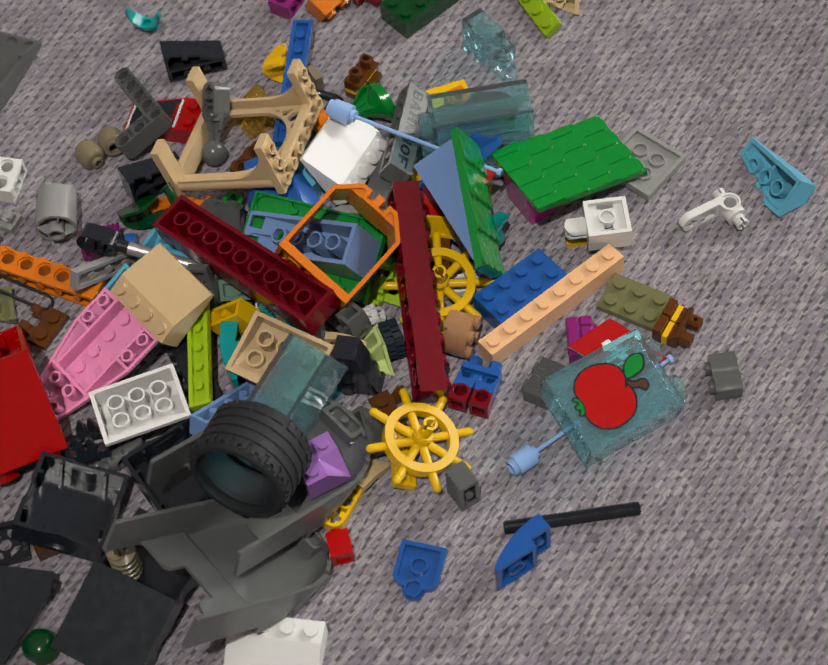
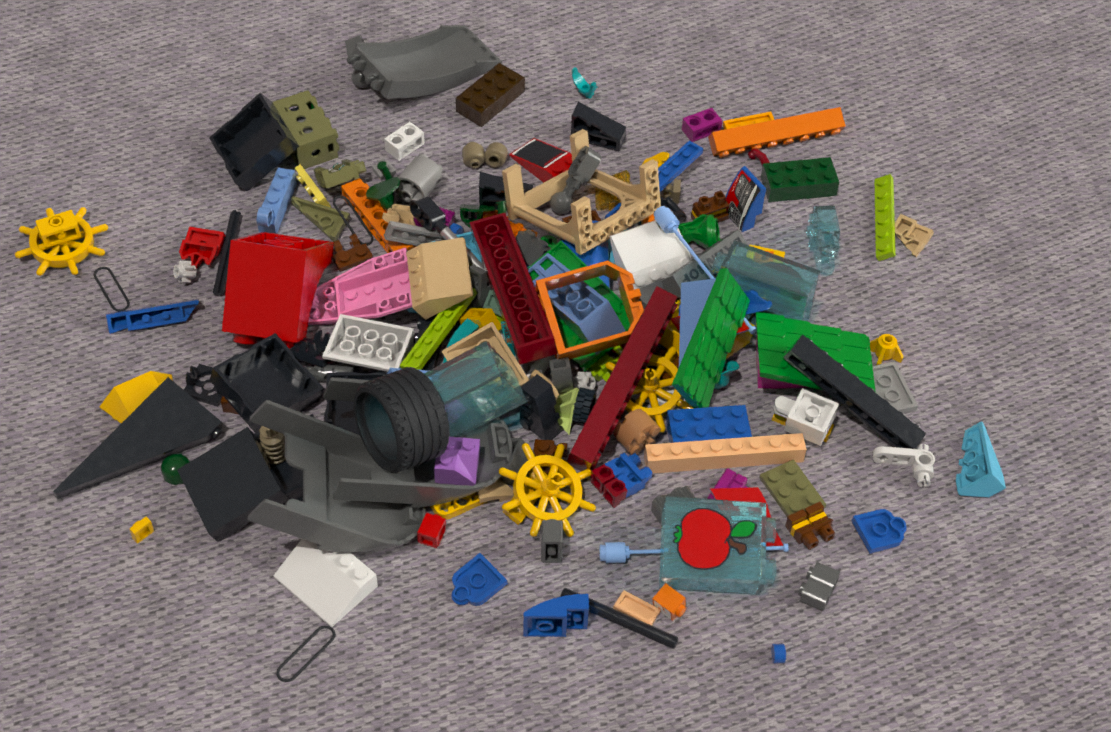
camera: 25 degrees right, 5 degrees down
(32, 241) = (384, 191): none -> dark green piece
(57, 83) = (490, 94): none -> dark brown brick
(68, 257) = (399, 214): none -> tan slope
(146, 127) = (533, 155): dark grey beam -> none
(391, 47) = (745, 199): none -> slope
(580, 498) = (636, 608): none -> light nougat tile
(608, 474) = (670, 602): none -> orange brick
(620, 117) = (886, 348): none -> yellow brick
(630, 179) = (854, 394): none -> black brick
(734, 459) = (778, 653): none -> blue piece
(736, 291) = (879, 529): none -> blue plate

